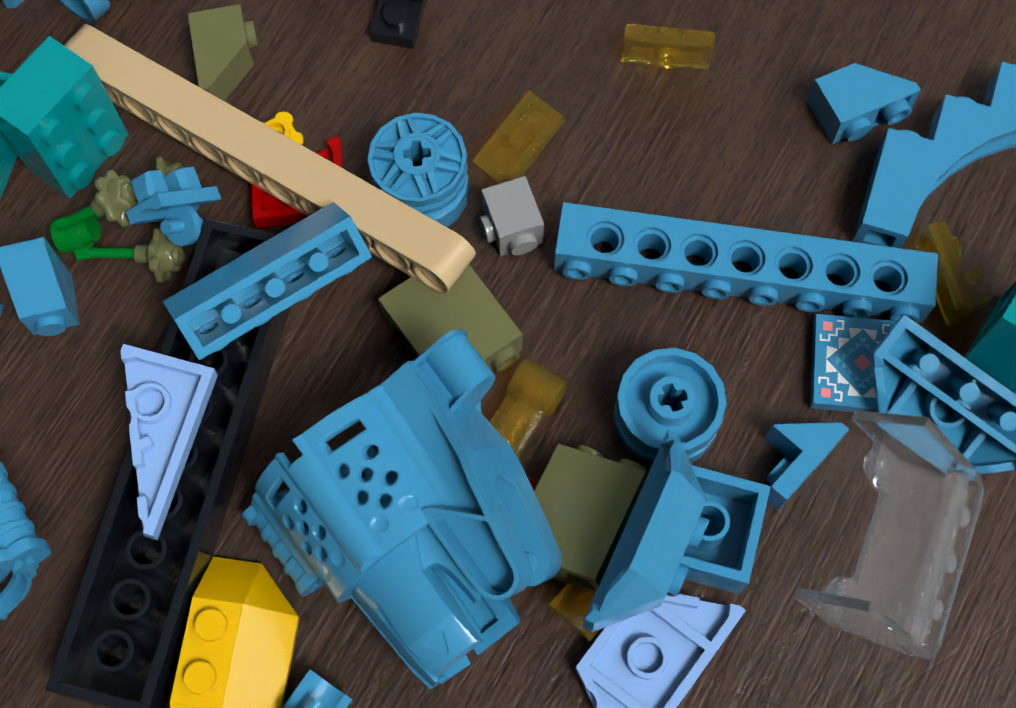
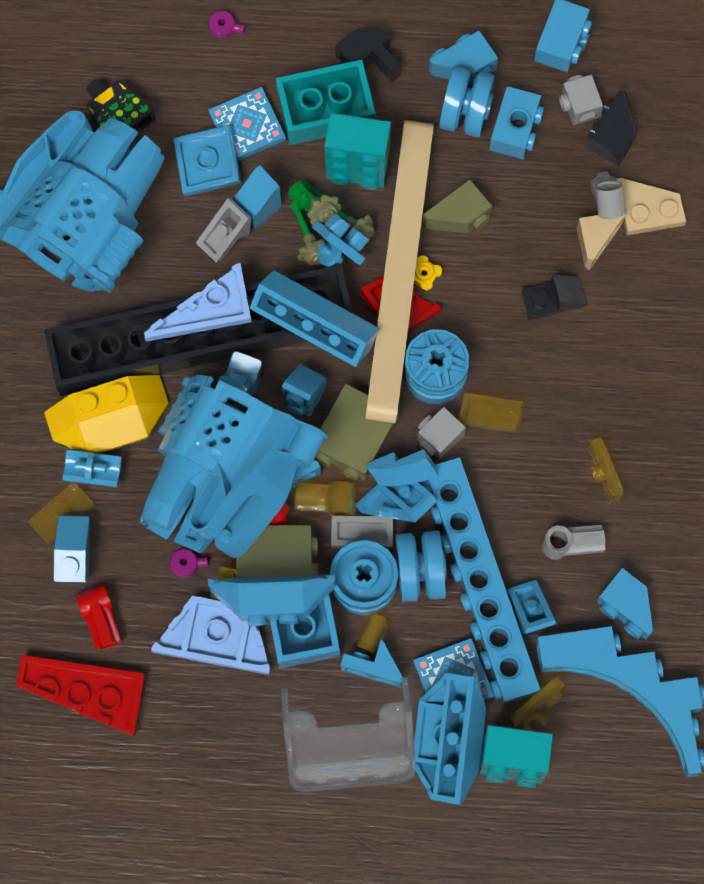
camera: 65 degrees right, 5 degrees up
(57, 355) = (224, 230): none -> light grey slope
(278, 425) = (243, 373): none -> dark azure slope
(354, 359) = (303, 390): none -> dark azure slope
(521, 644) = (192, 563): none -> magenta piece
(538, 296) = (405, 471): none -> dark azure slope
(576, 310) = (397, 502): none -> dark azure wing
(594, 386) = (358, 528): none -> light grey tile
(695, 315) = (421, 566): none -> dark azure wheel
(743, 127) = (576, 541): none -> light grey piece
(747, 439) = (371, 632): none -> clear yellow pin
(818, 212) = (530, 607): none -> dark azure slope

